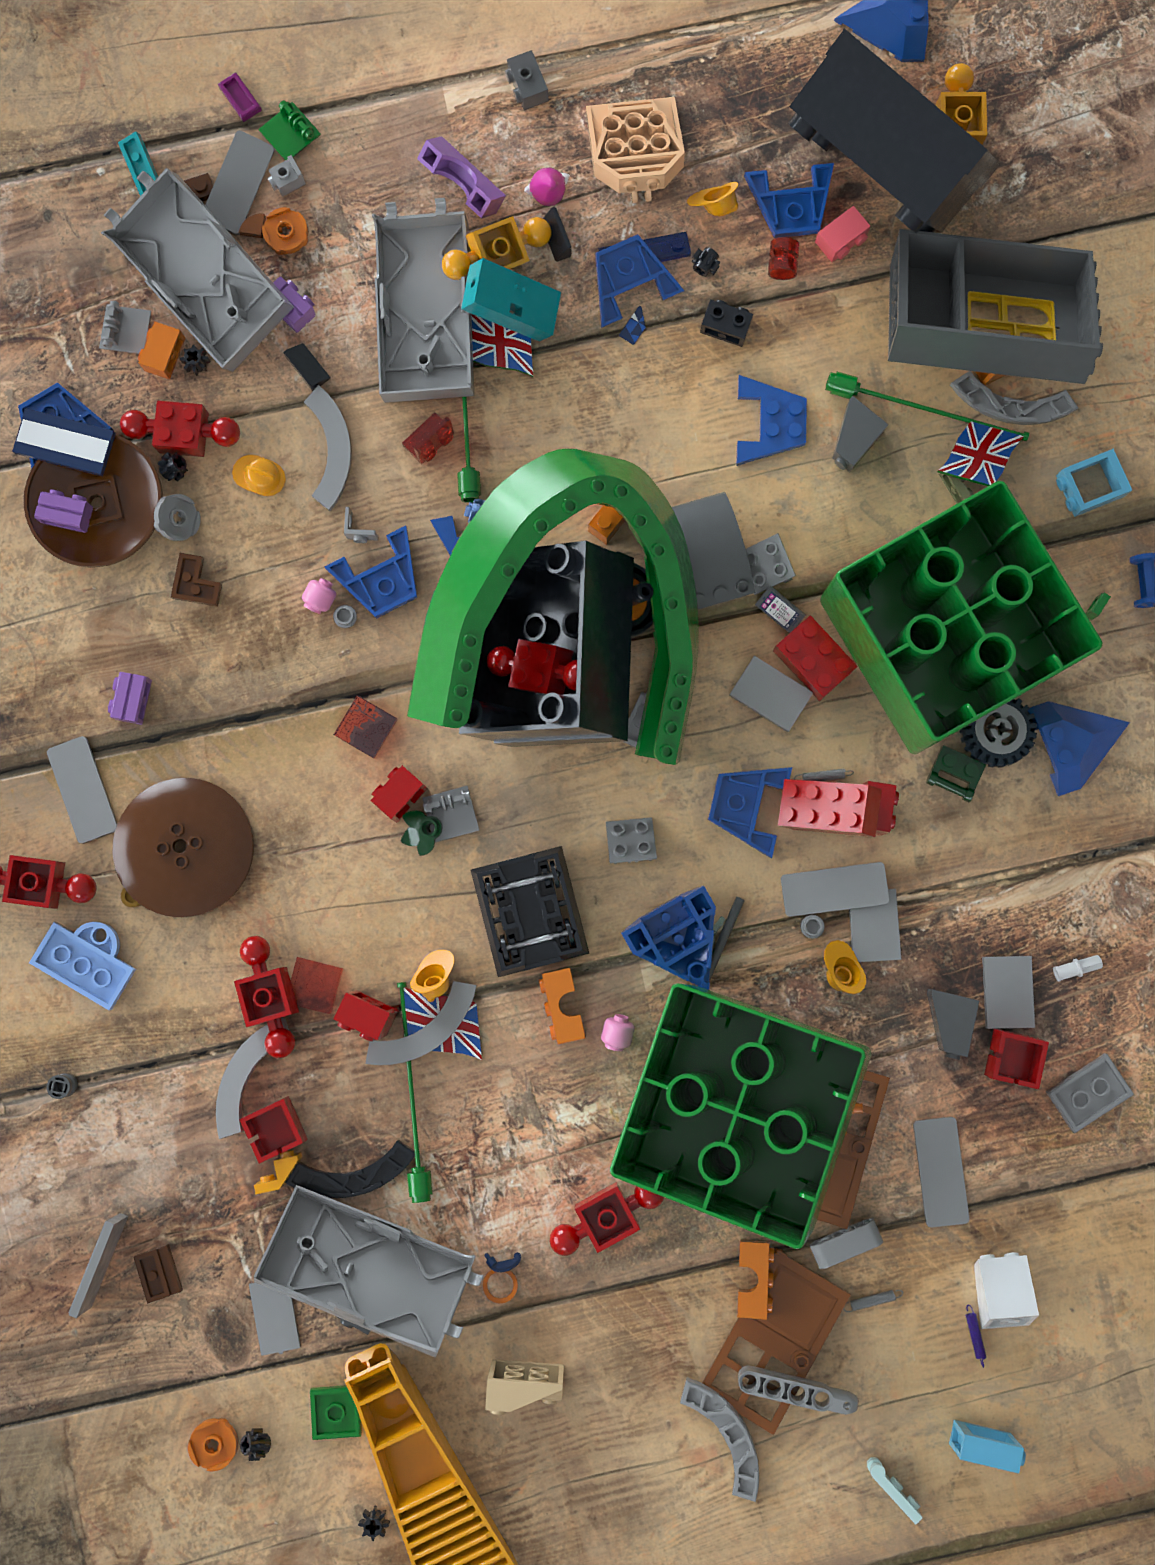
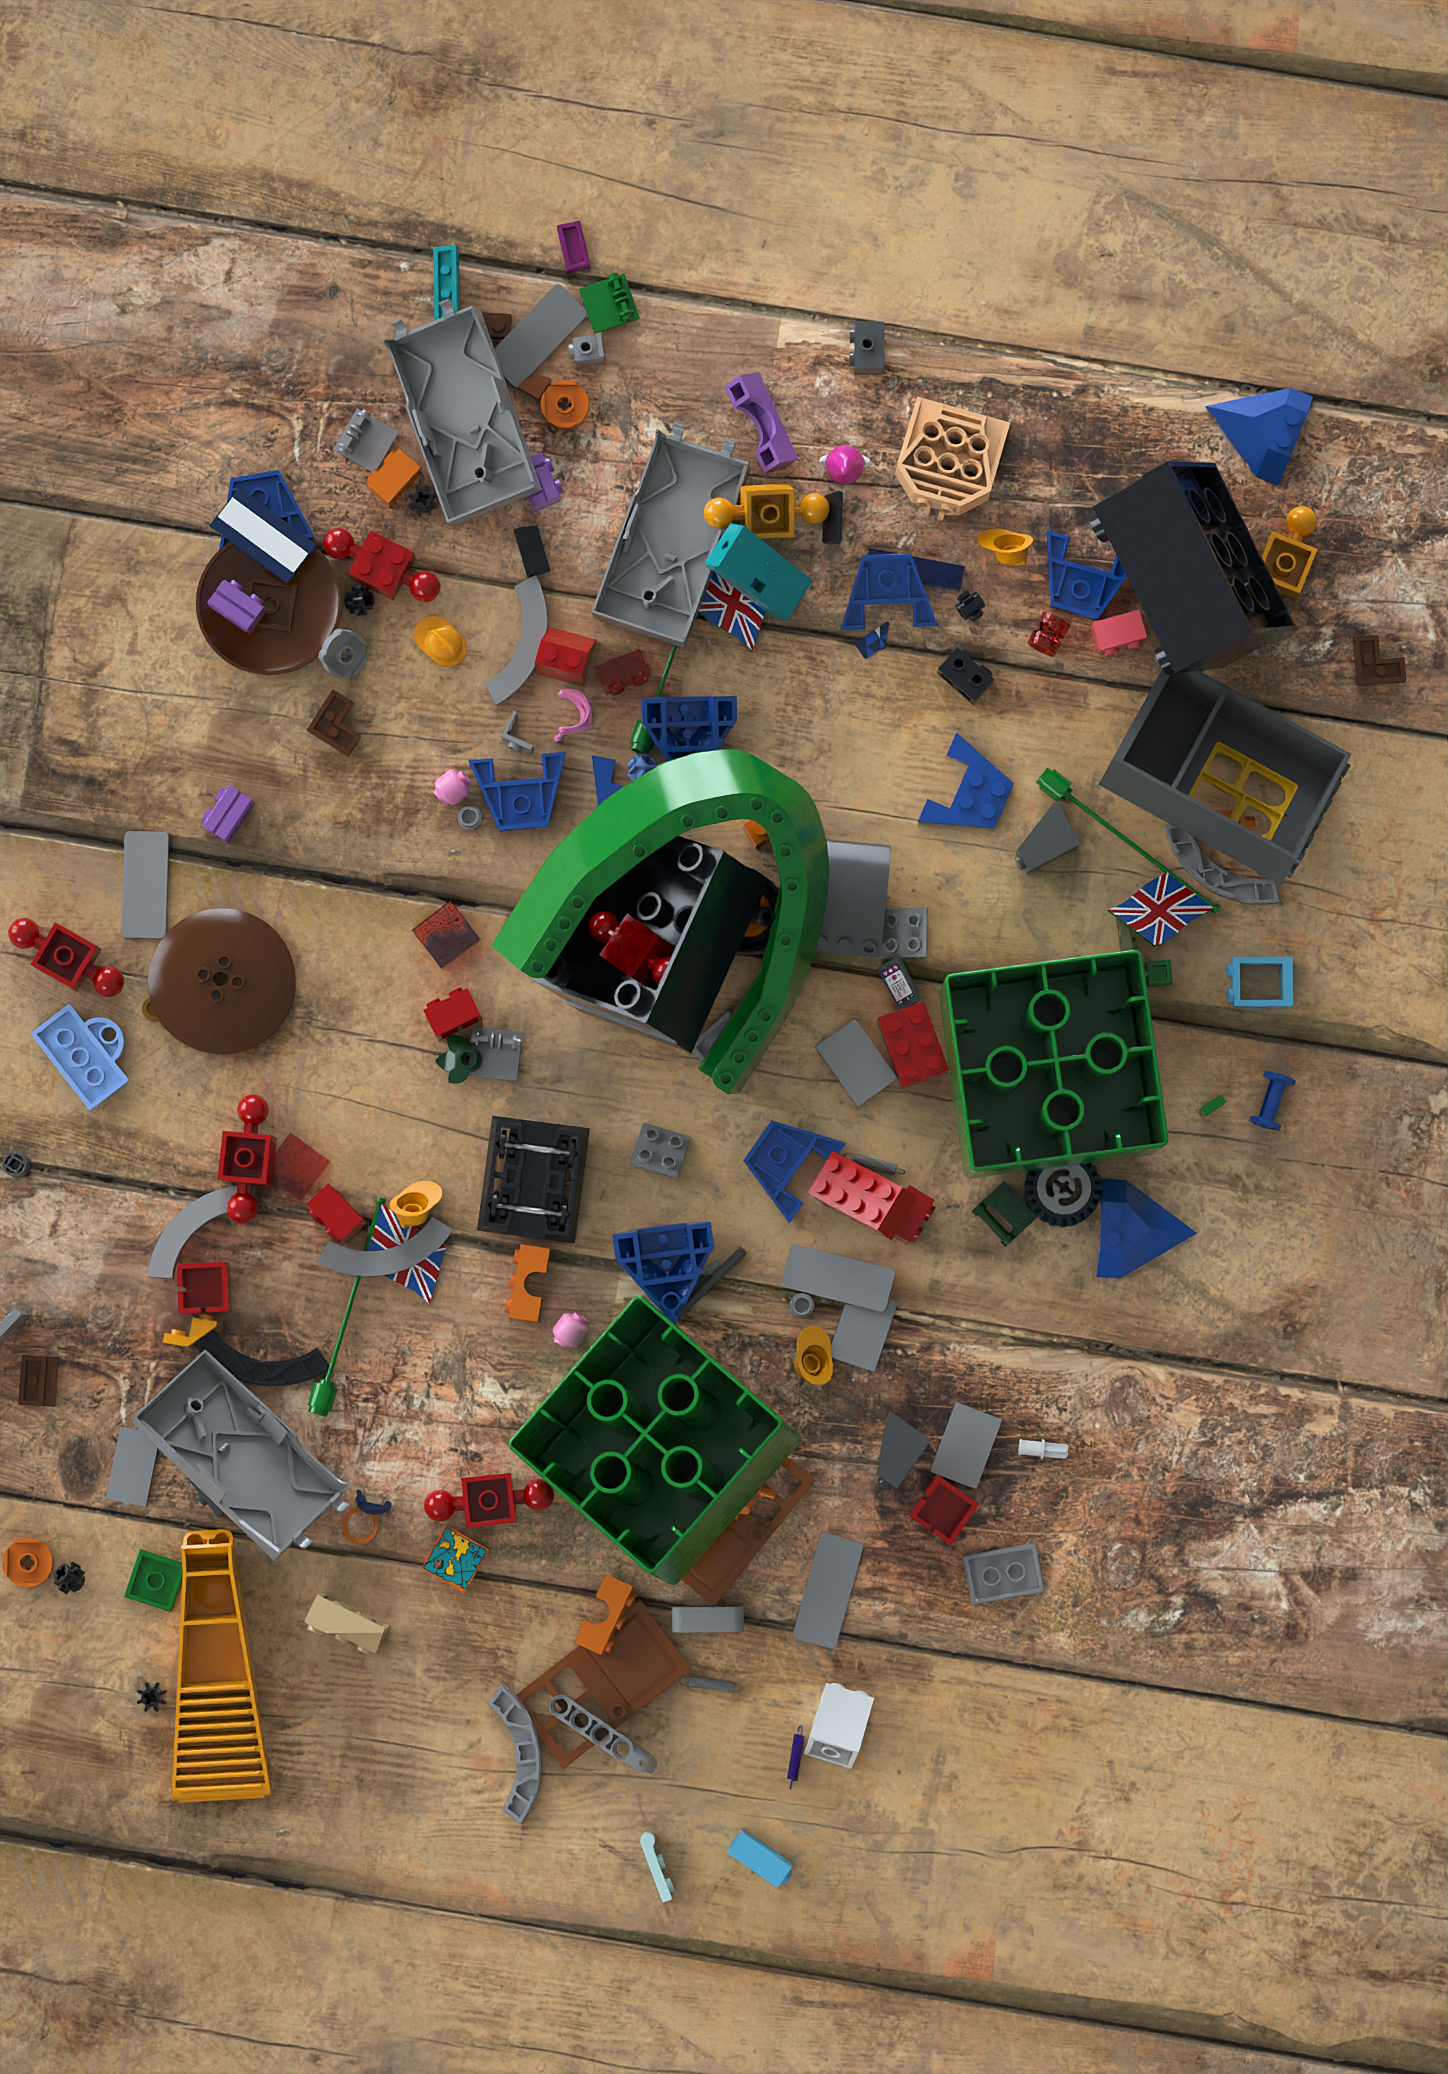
camera: 15 degrees right, 0 degrees up
(371, 445) = (564, 656): none -> red slope
(406, 480) = (585, 707): none -> bright pink helmet
(501, 454) = (688, 723): none -> blue wedge
(597, 1281) = (455, 1558): none -> tile
(1072, 179) = (1372, 669): none -> reddish brown plate

